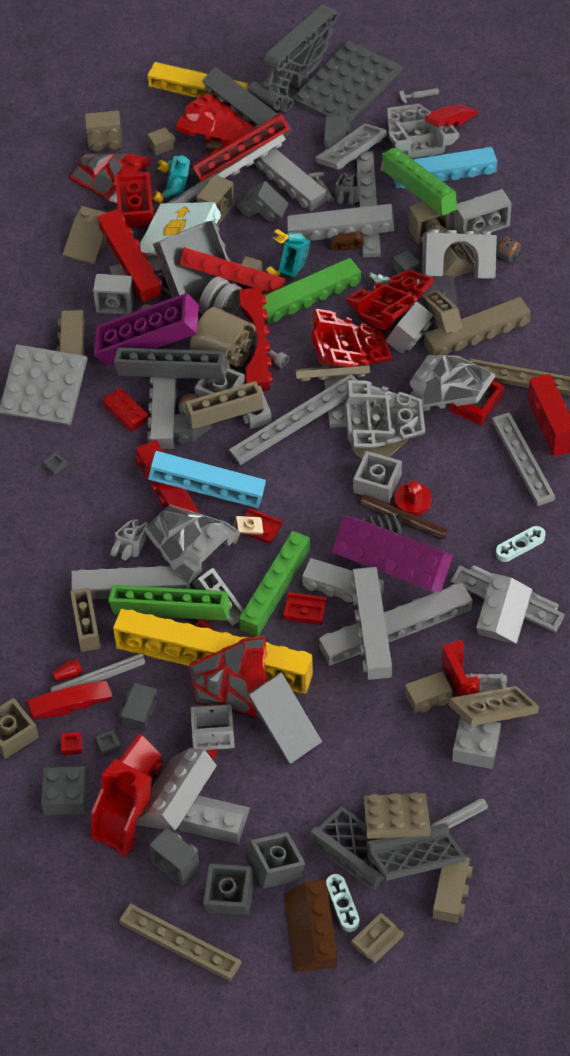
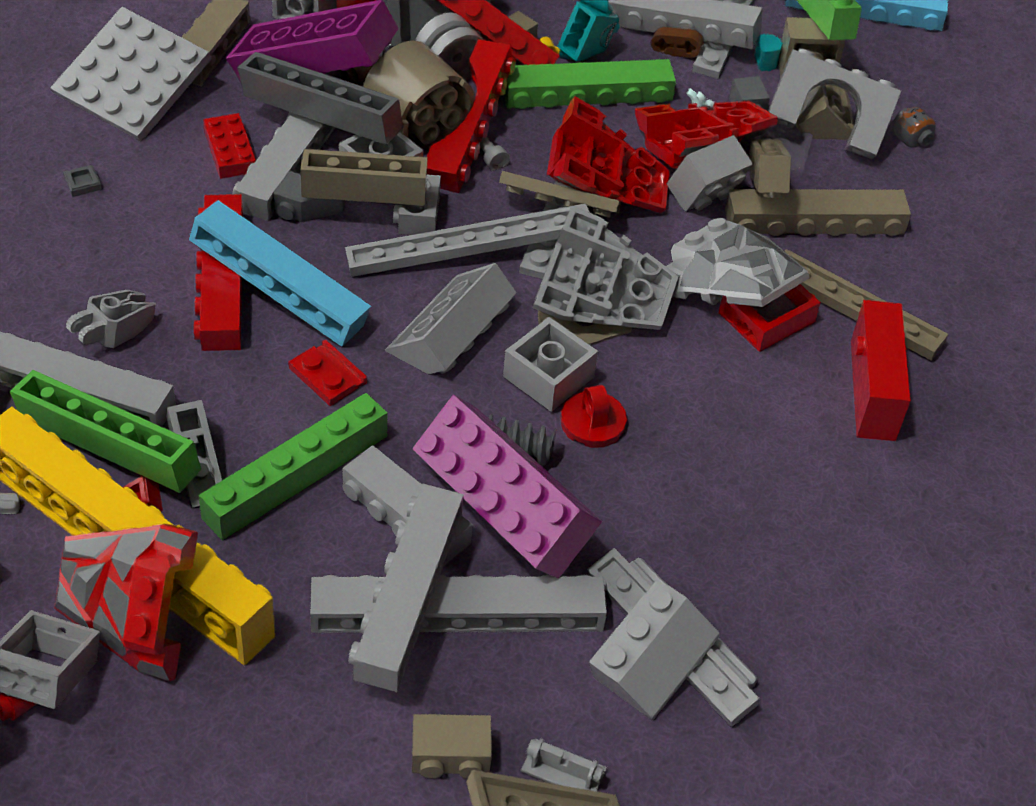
camera: 15 degrees right, 5 degrees down
(188, 539) = (192, 340): wedge -> none
(248, 525) = (304, 362): tan bracket -> none
(284, 718) = (167, 691): tile -> none
(305, 608) = (323, 523): red plate -> none
(310, 470) = (453, 320): none -> light grey slope
(402, 228) = (767, 52): none -> teal brick
(407, 518) = (565, 441): reddish brown axle -> none
(452, 666) = (520, 704): red panel -> none
(483, 213) = (906, 62): light grey brick -> none
(523, 459) = (804, 425): light grey plate -> none
(523, 537) = (744, 542): light aqua beam -> none

